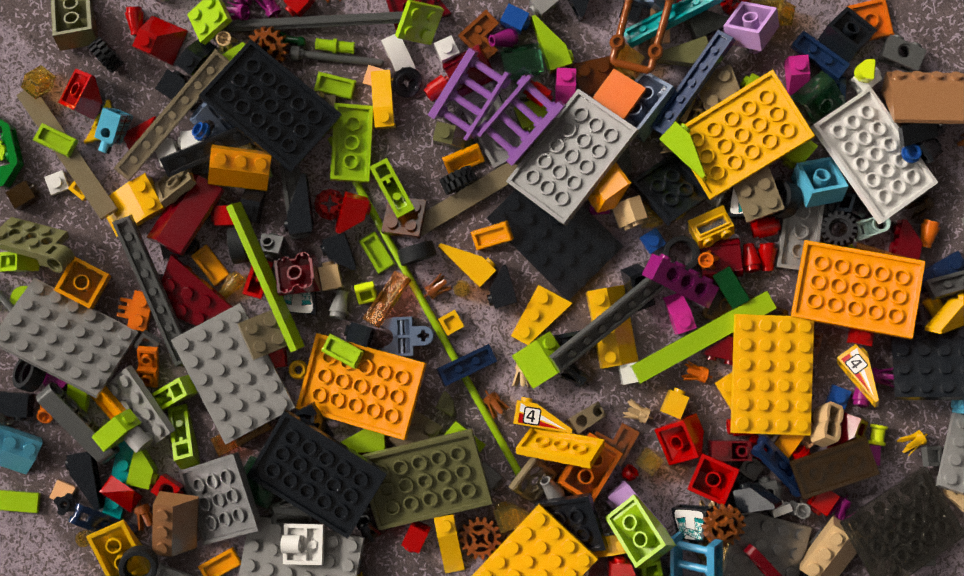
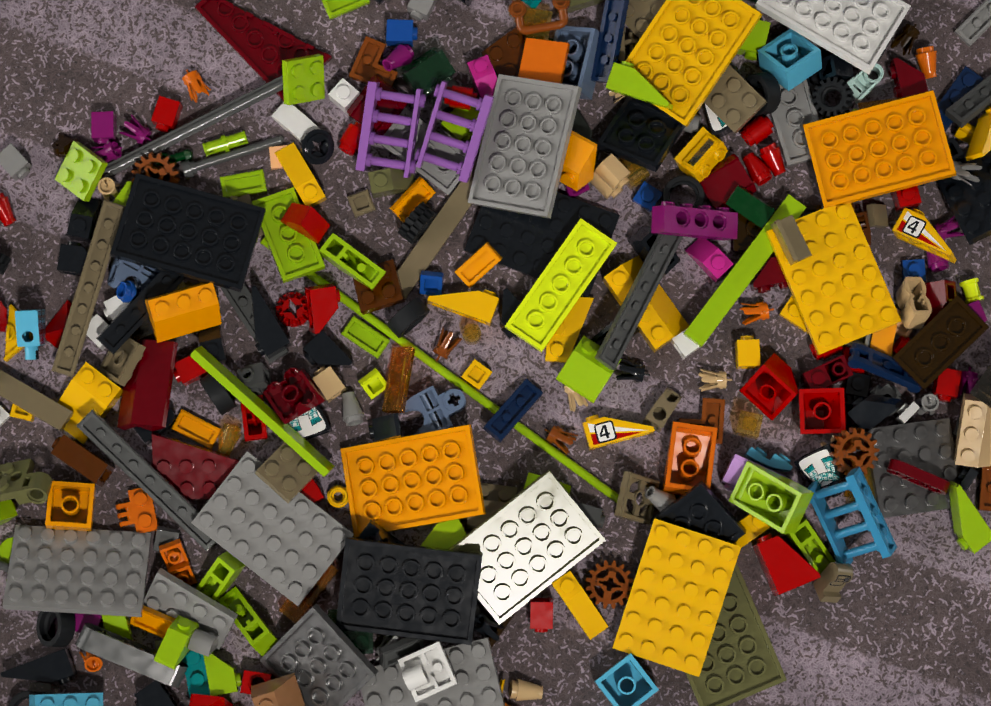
camera: 25 degrees left, 5 degrees down
(107, 250) = (82, 460): none -> reddish brown window
(160, 39) = (38, 218): red slope -> none
(343, 351) = (377, 453): lime tile -> none
(369, 139) = (306, 221): none -> red slope
(421, 143) = (361, 203): none -> dark tan tile
(446, 404) = (510, 462): olive tile -> none
(448, 233) = (431, 283): none -> blue plate
(509, 515) = (629, 547): clear yellow slope -> none
(550, 282) = (560, 285): none -> neon yellow plate
(552, 47) = (456, 46): lime slope -> none
(560, 447) = (649, 448): yellow plate -> none
(629, 472) = (734, 446): red hinge -> none
(656, 500) = (776, 462): none -> medium azure slope
(706, 260) = (712, 189): orange piece -> none
(752, 330) = (791, 239): none -> dark tan panel
(830, 339) = (877, 215): none -> dark tan tile
(916, 338) = (962, 173): none -> light grey piece

